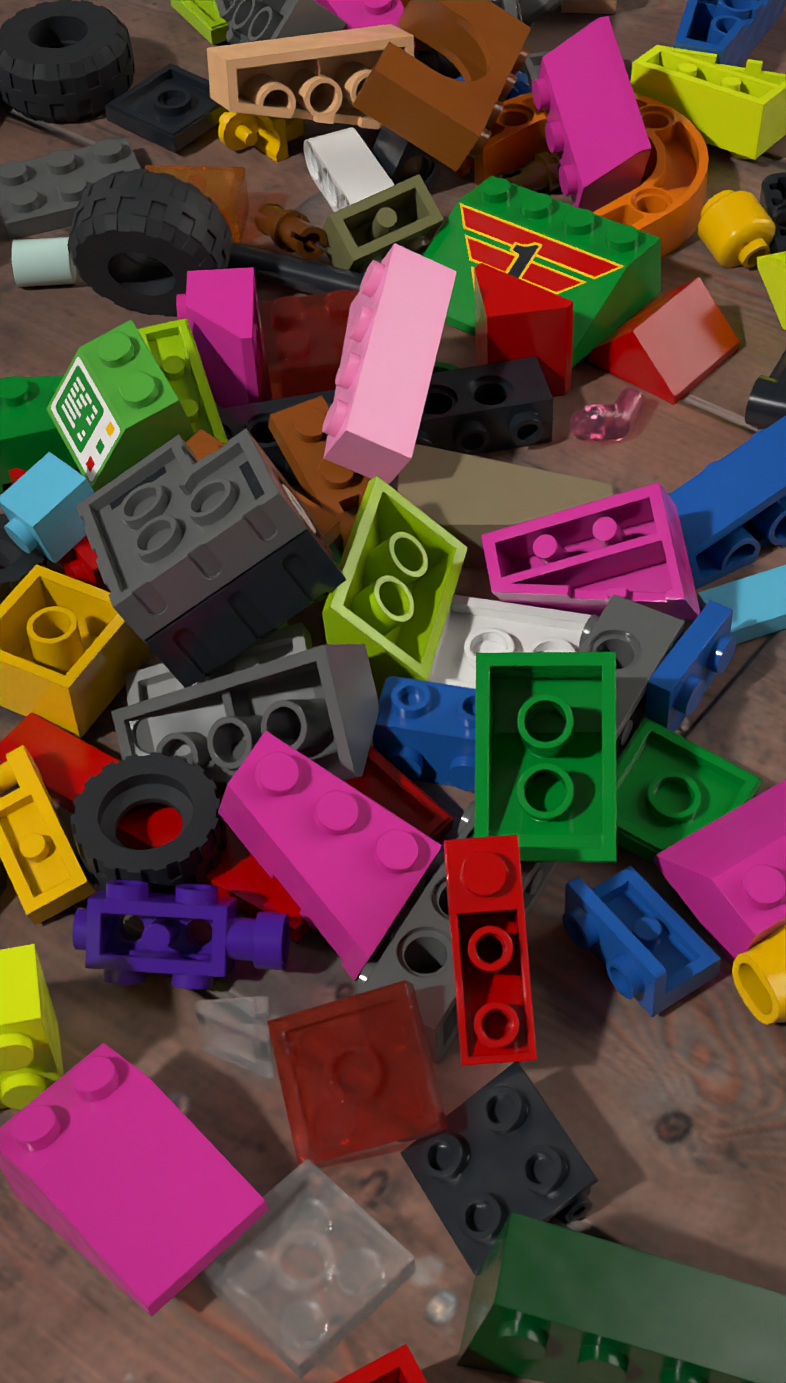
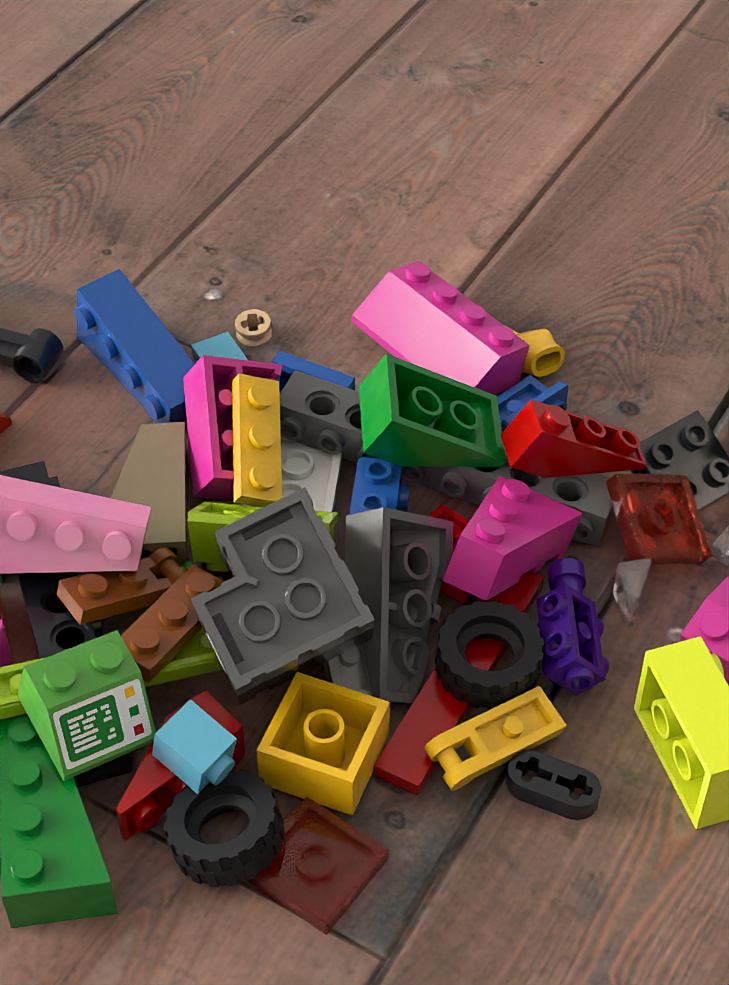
camera: 100 degrees left, 0 degrees up
(542, 575) = (256, 440): none -> yellow plate
(608, 421) = (36, 445): clear pink arm -> none

